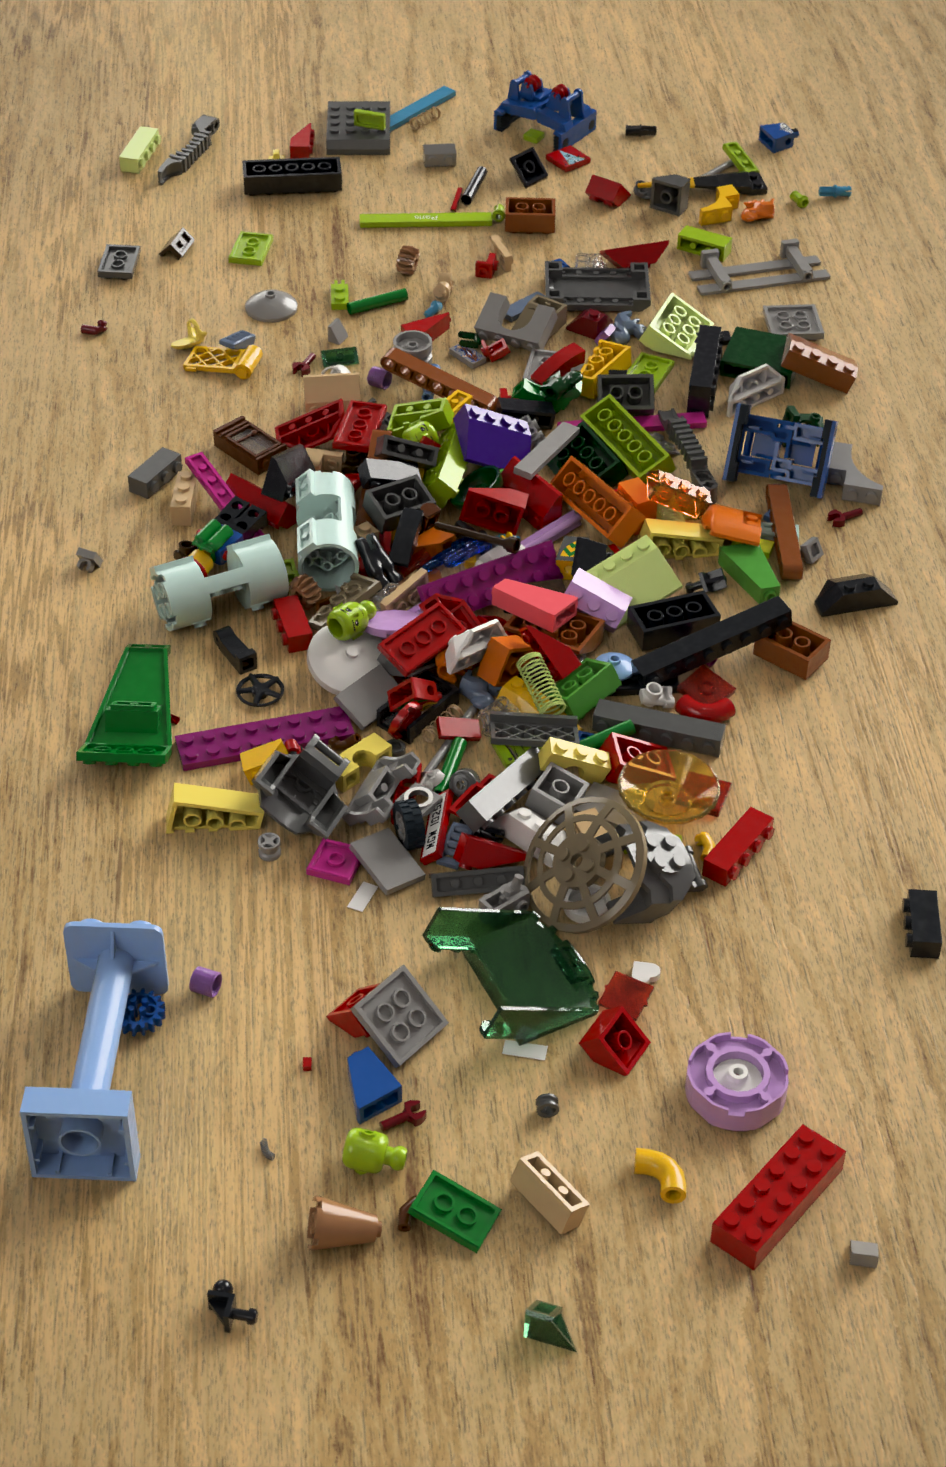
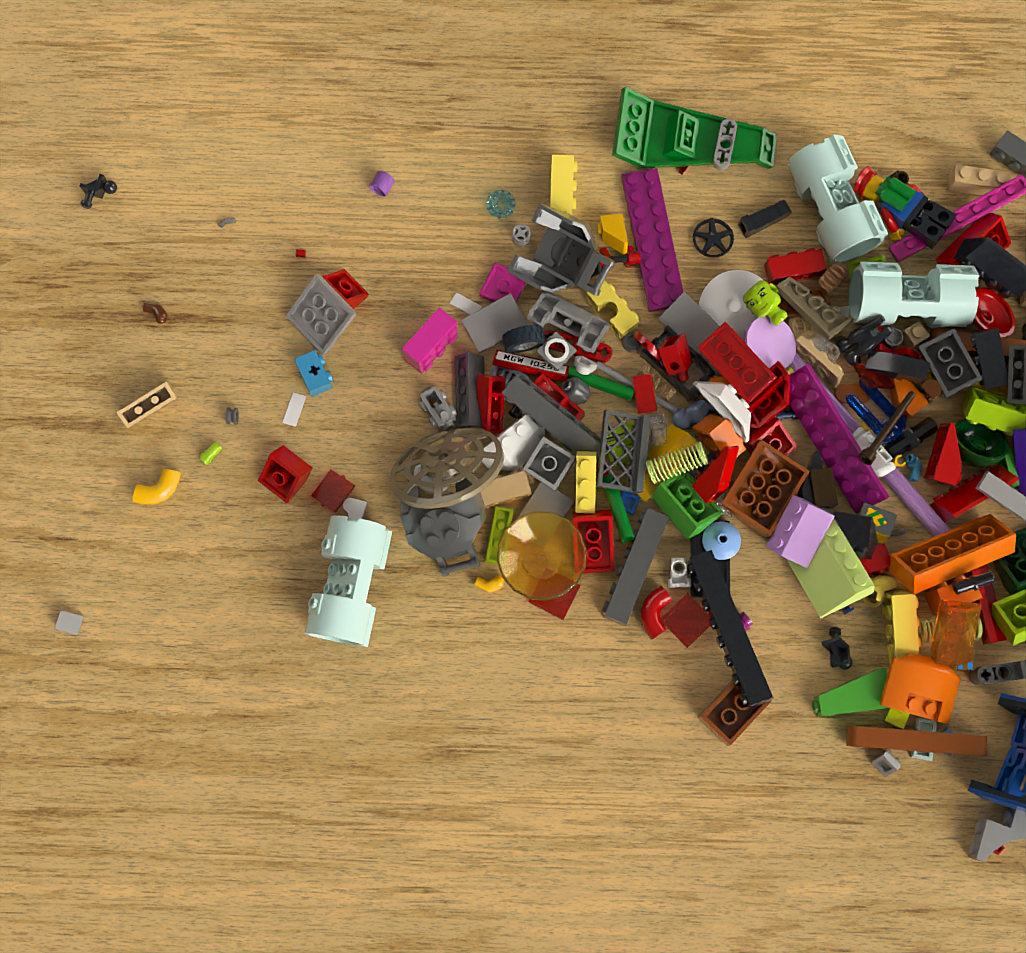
camera: 95 degrees right, 35 degrees up
(88, 557) = (893, 102): light grey tile -> none
(89, 1127) = (230, 89): light blue piece -> none
(150, 1013) = (367, 131): blue gear -> none
(163, 670) = (727, 151): none -> light grey beam
(232, 864) = (504, 197): none -> clear light blue gear
(337, 745) = (638, 299): reddish brown arm -> none
(340, 1225) = (143, 261): medium nougat cone -> none
(369, 1152) = (205, 287): lime piece -> none
(371, 1085) = (269, 292): blue slope -> none
(406, 1116) = (241, 316): dark red bar -> none
(414, 902) = (430, 341): none -> dark pink brick
(454, 1211) = (147, 340): green tile -> none
(464, 1026) = (315, 383): none -> dark azure brick
(522, 965) = (360, 422): clear green windscreen -> none
(535, 604) = (783, 472): coral slope -> none
(546, 1324) = (47, 392): clear green slope -> none
(599, 1123) = (210, 453): none -> lime pin
(627, 477) = (973, 583): none -> black axle
(670, 619) = (778, 603): black brick -> none
(736, 1081) = (209, 554): lavender piece -> none
(738, 846) = (483, 609): red brick -> none
(741, 950) = (342, 610): none -> light aqua cylinder
(777, 1197) = (121, 568): red brick -> none
(839, 518) = (950, 803): dark red bar -> none
(853, 595) = (819, 792): black wedge -> none
(922, 923) = (376, 747): black brick -> none

